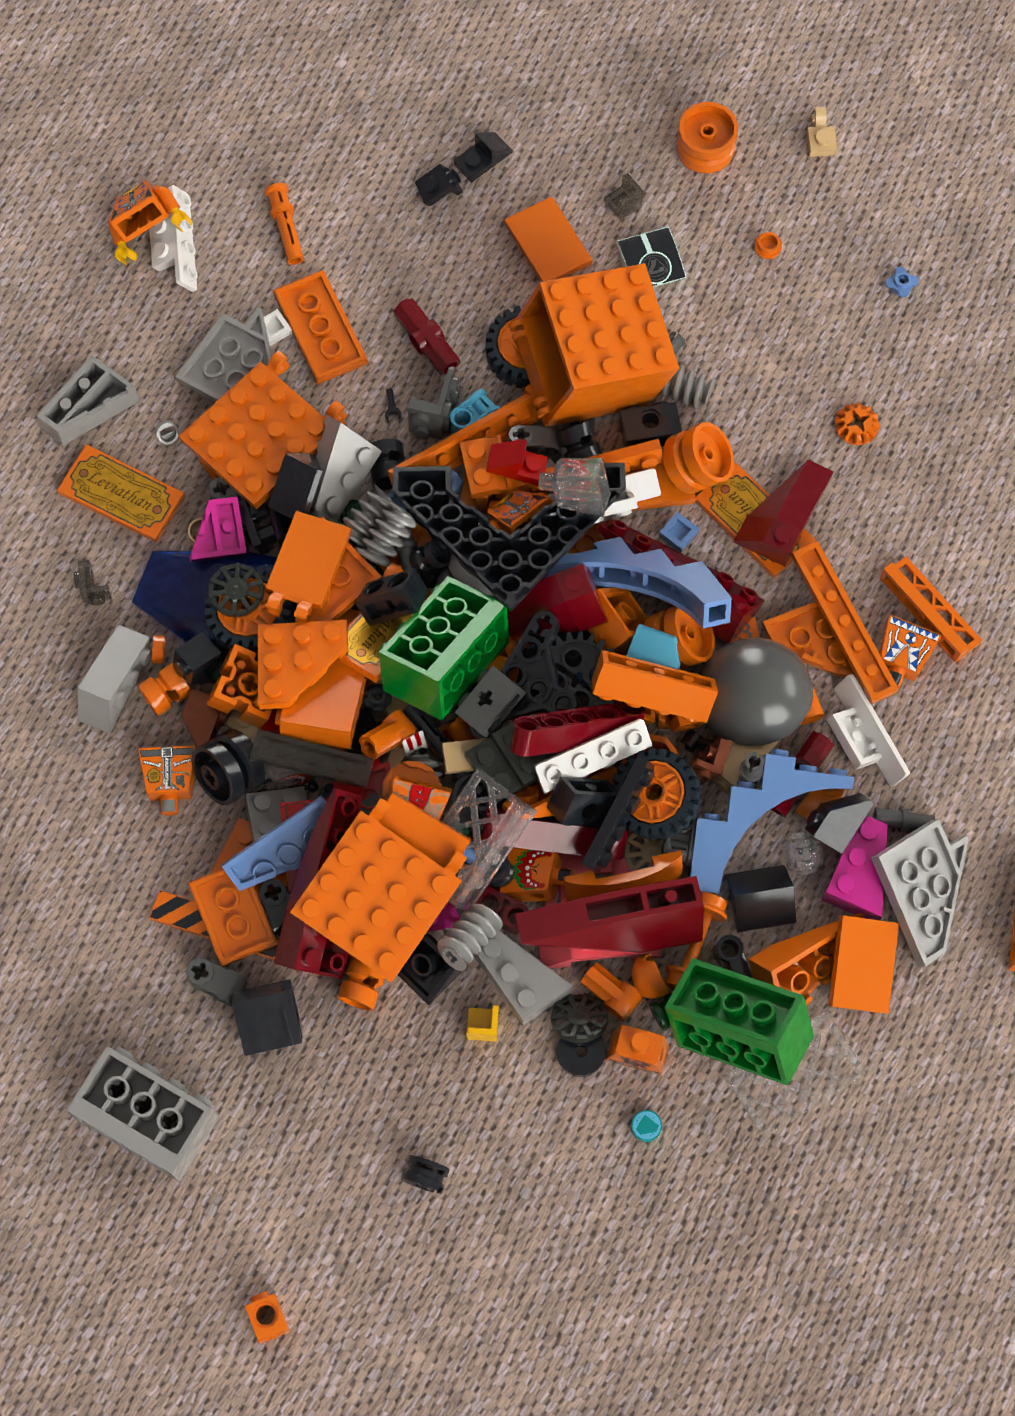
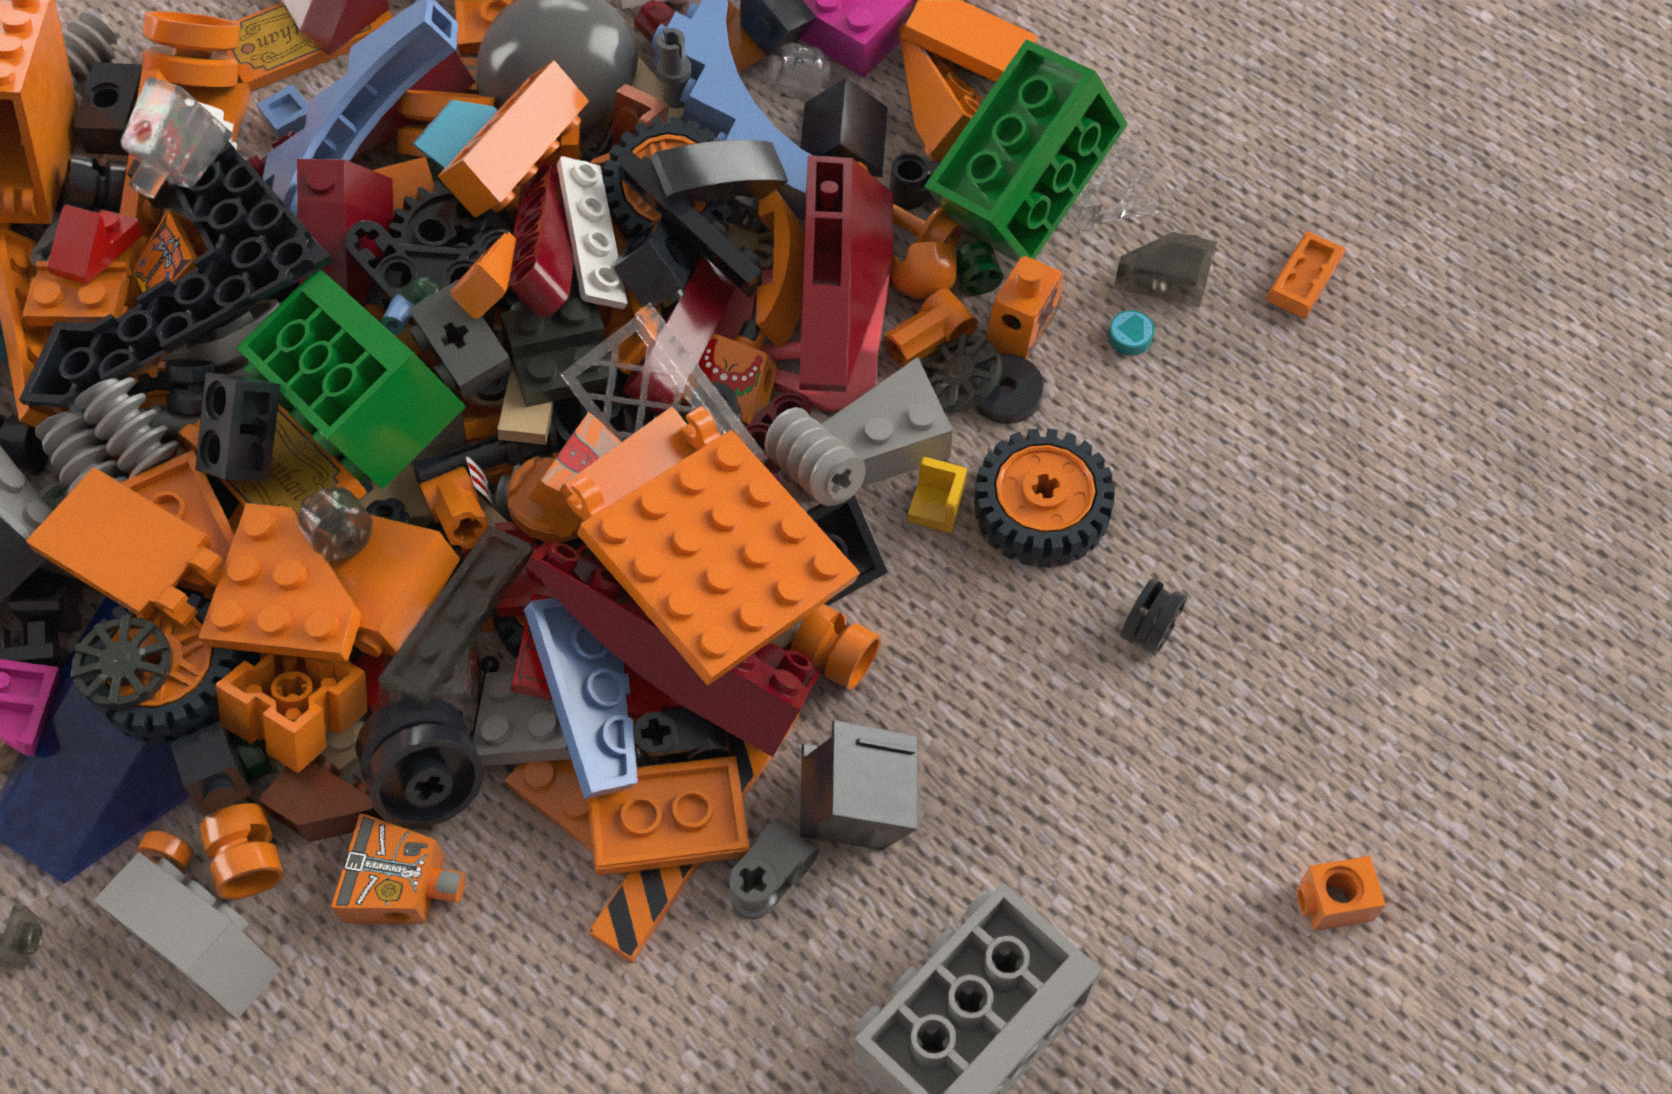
camera: 75 degrees left, 10 degrees down
(341, 673) = (335, 523): none -> clear smoke head
(492, 1113) = (1038, 528): none -> wheel
(507, 661) = (397, 313): none -> arm
(520, 703) = (486, 278): none -> orange slope
(655, 822) = (720, 170): none -> black slope
(702, 1143) = (1168, 269): none -> clear smoke slope
(723, 1238) = (1305, 274): none -> orange plate

